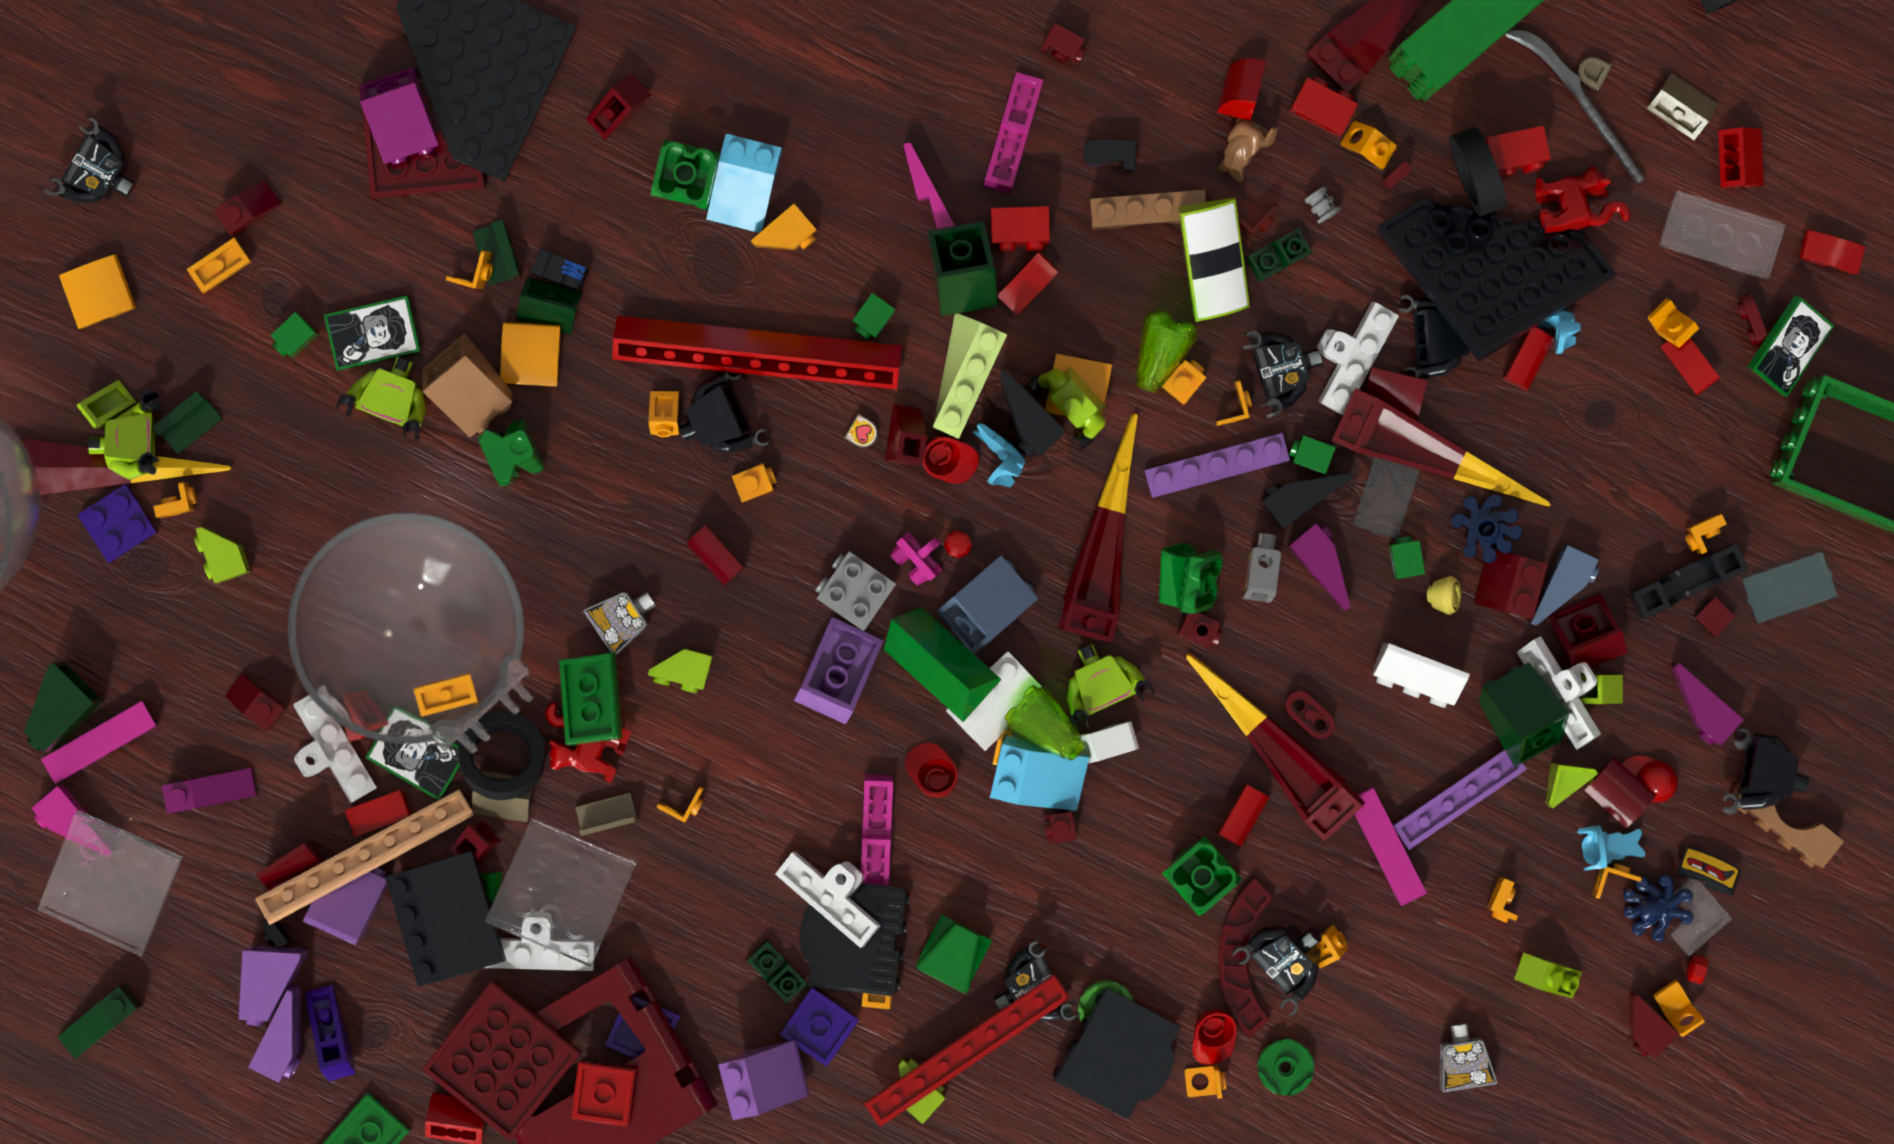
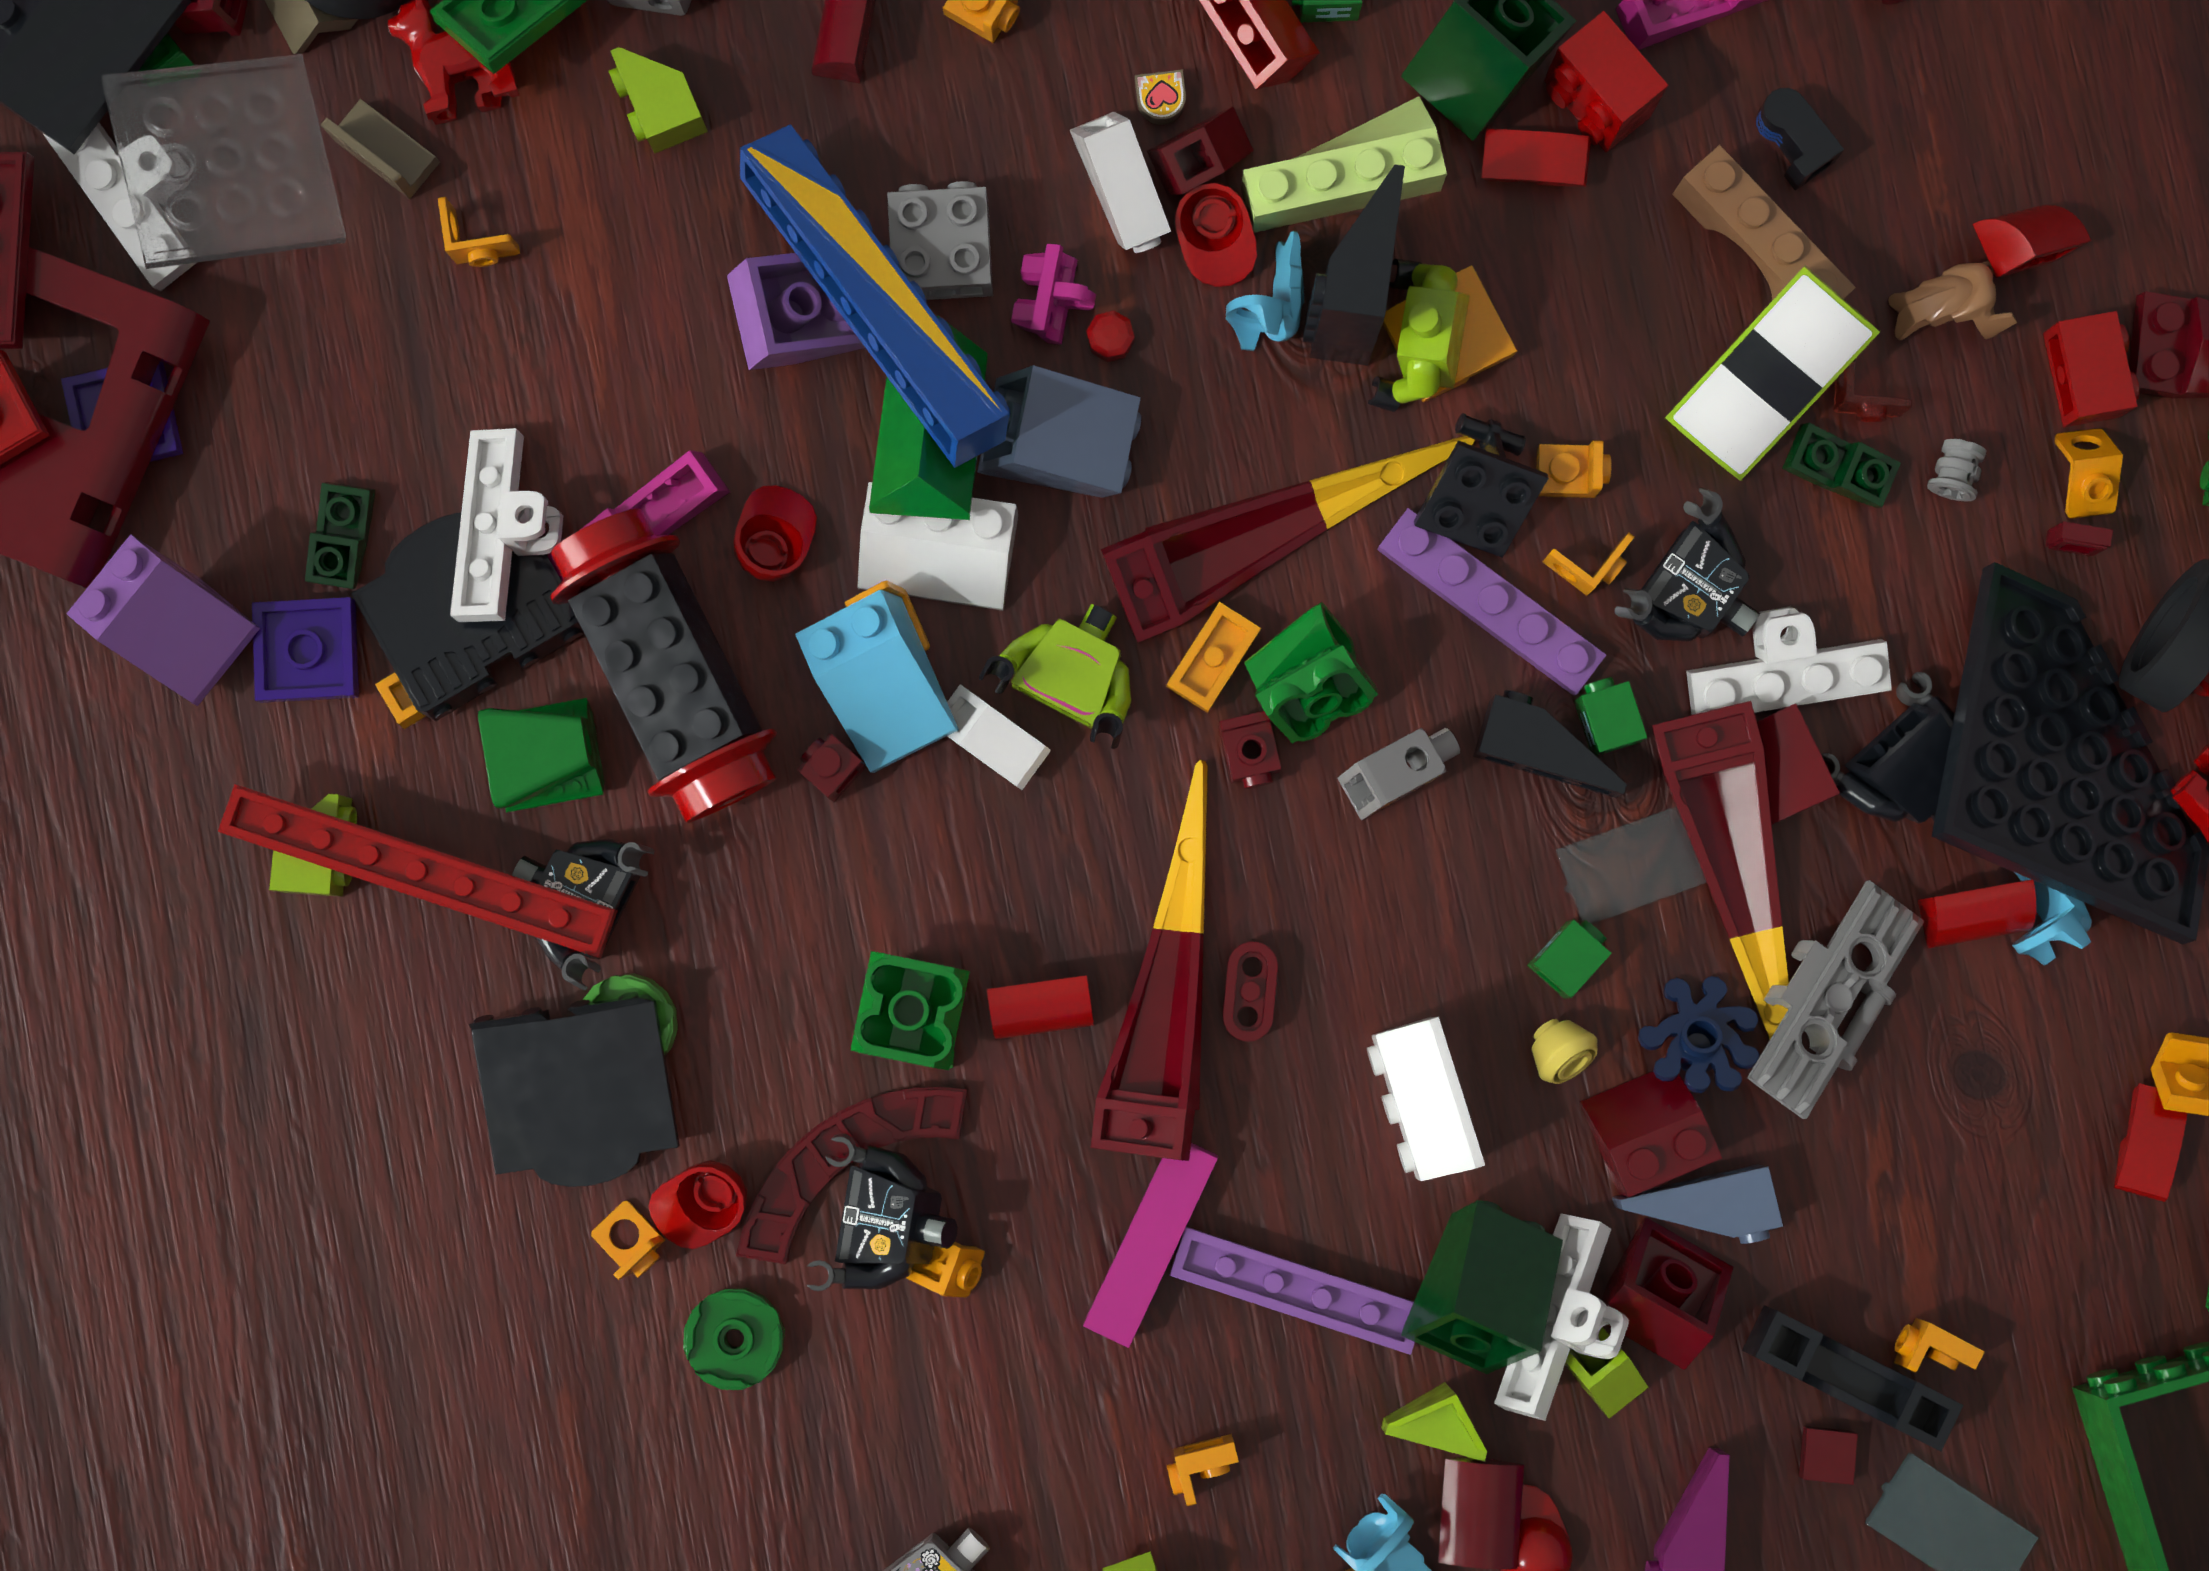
camera: 60 degrees right, 5 degrees down
(863, 643) = (874, 295): none -> blue brick
(889, 484) = (1121, 181): none -> white slope
(961, 868) = (663, 663): none -> black brick
(1044, 724) = (954, 627): clear neon green cone -> none
(1144, 613) = (1213, 657): none -> light orange plate
(1162, 348) = (1591, 400): clear neon green cone -> none
(1166, 434) = (1479, 491): none -> black plate
(1321, 559) = (1477, 836): magenta slope -> none
(1510, 457) = (1824, 993): none -> light grey piece

